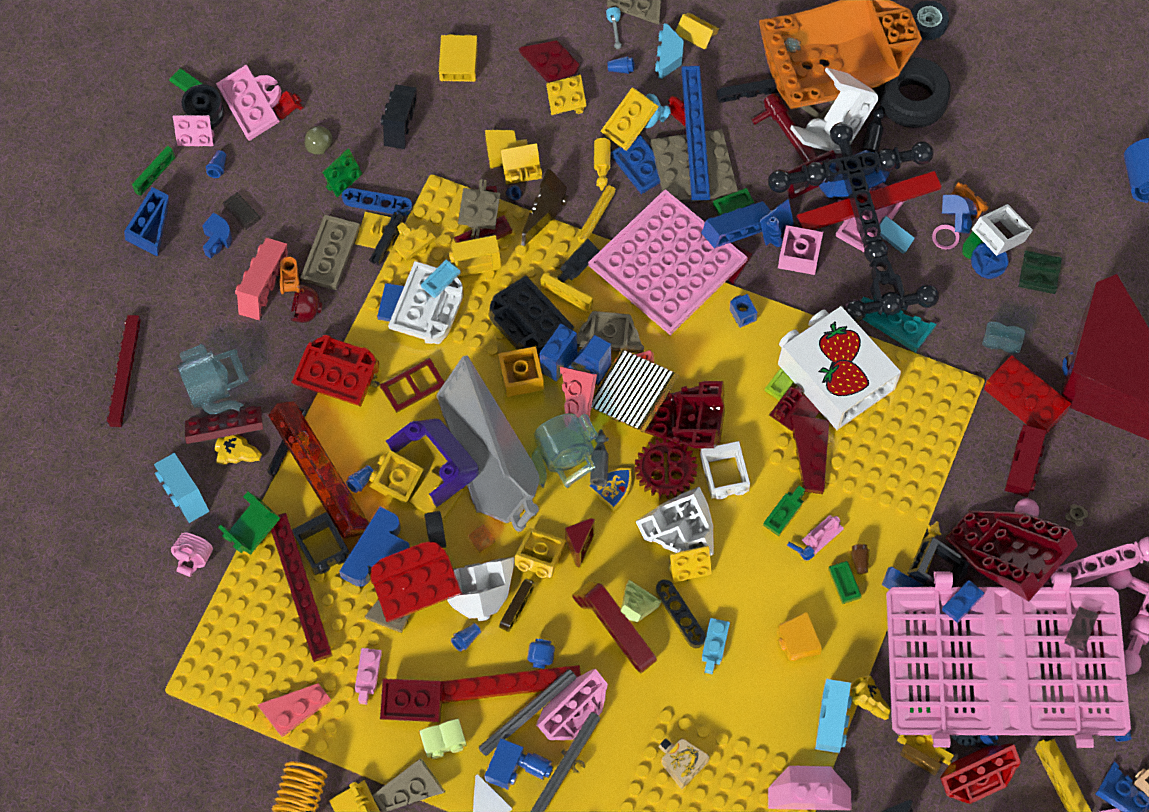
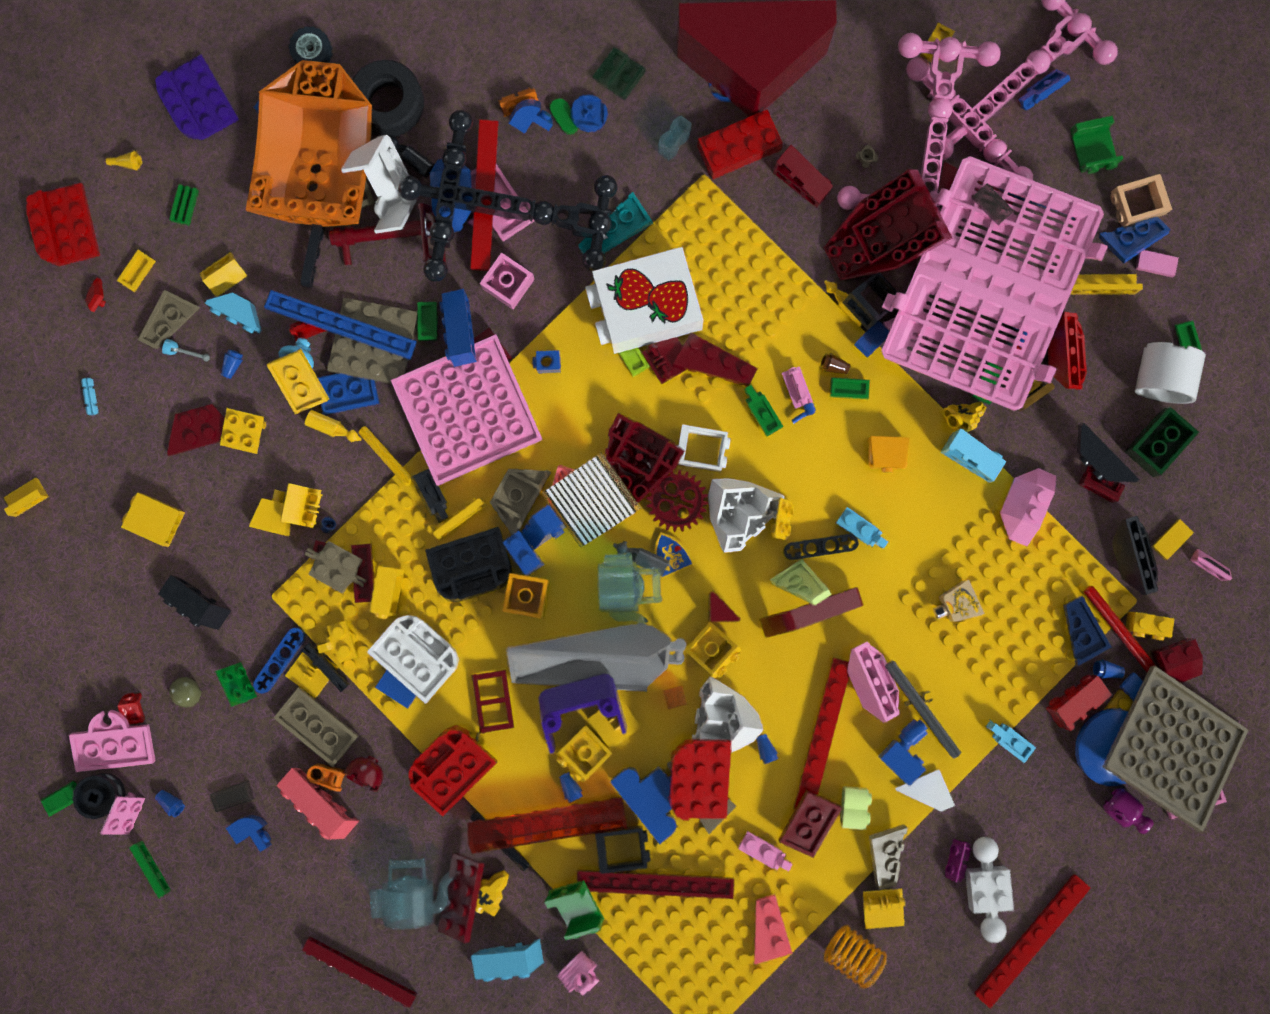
camera: 65 degrees left, 20 degrees up
(148, 222) = (208, 894): blue wedge -> none
(435, 528) = (654, 739): black tyre -> none
(440, 278) = (397, 634): medium azure tile -> none
(517, 605) = (754, 691): dark brown beam -> none
(527, 712) = (861, 722): dark grey axle -> none
(541, 653) = (810, 688): blue head -> none
(546, 205) = (354, 494): dark brown wedge -> none
(578, 390) = (574, 551): coral wing -> none
(775, 224) = (471, 295): blue hinge -> none
(792, 45) = (286, 190): clear light blue plate -> none
(895, 234) = (527, 186): medium azure tile -> none
(945, 227) = (542, 131): bright pink piece -> none
(963, 601) = (923, 294): blue plate -> none
(993, 237) = (572, 98): white window -> none

